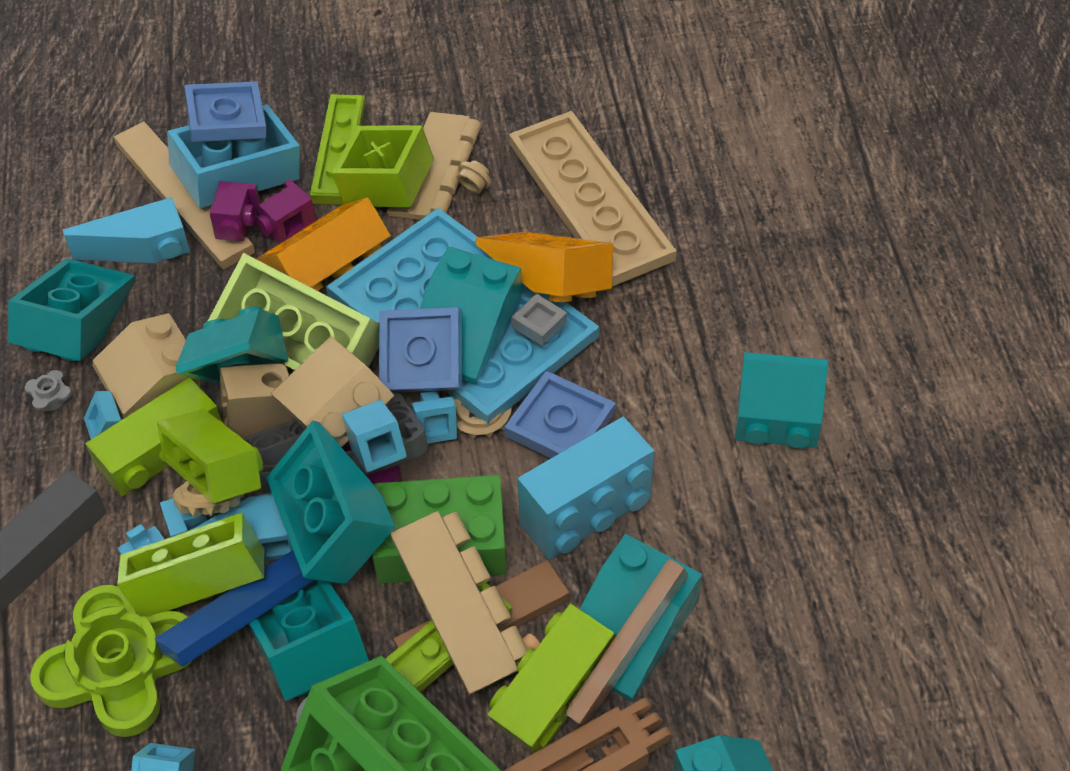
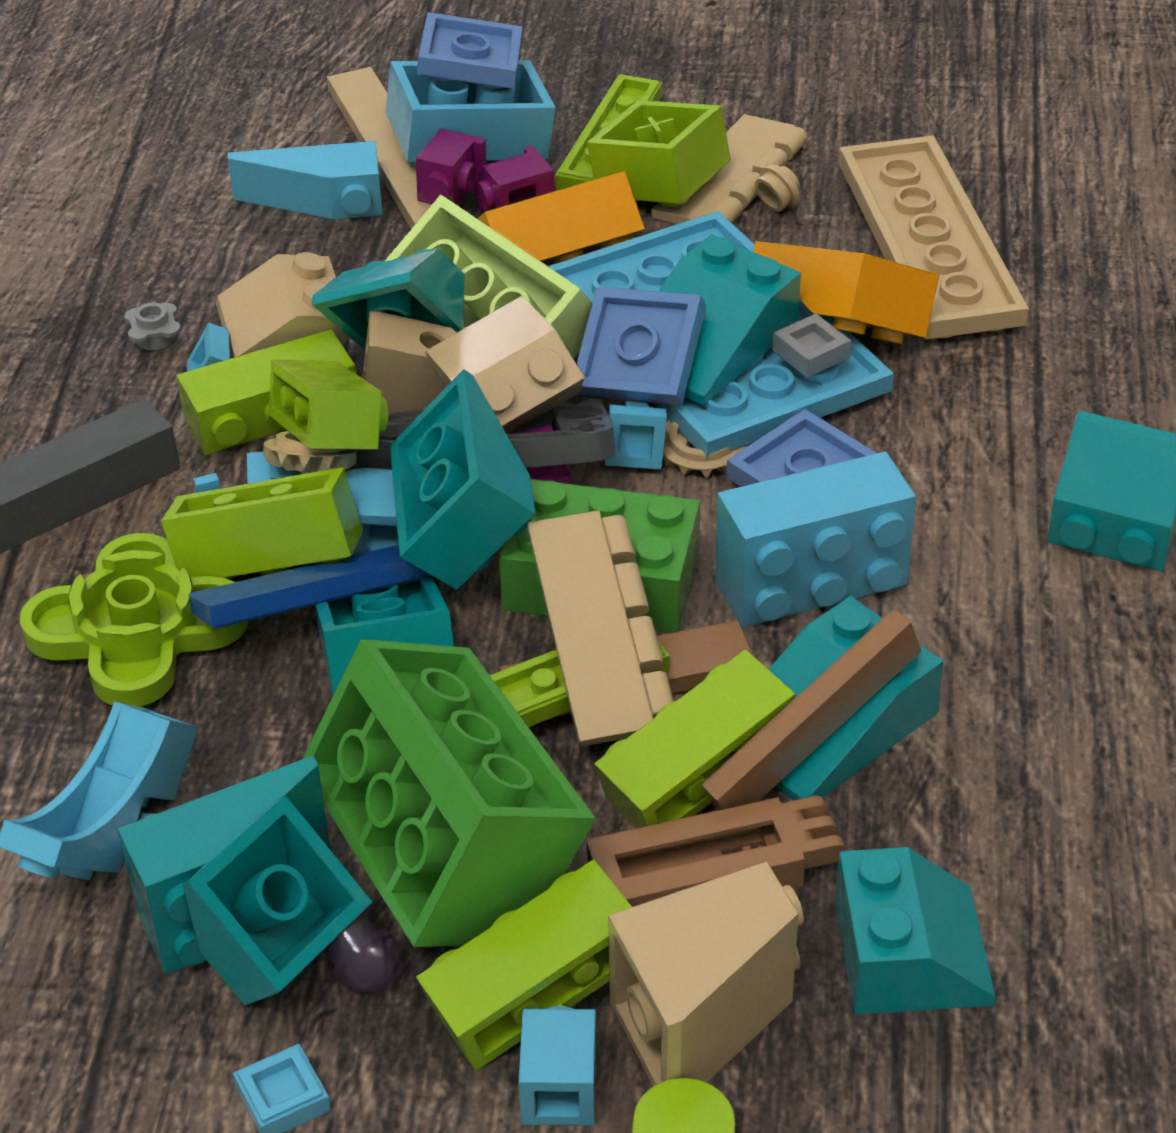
camera: 15 degrees right, 10 degrees down
(67, 309) = (203, 241): teal slope -> none
(374, 435) = (541, 410): medium azure brick -> none

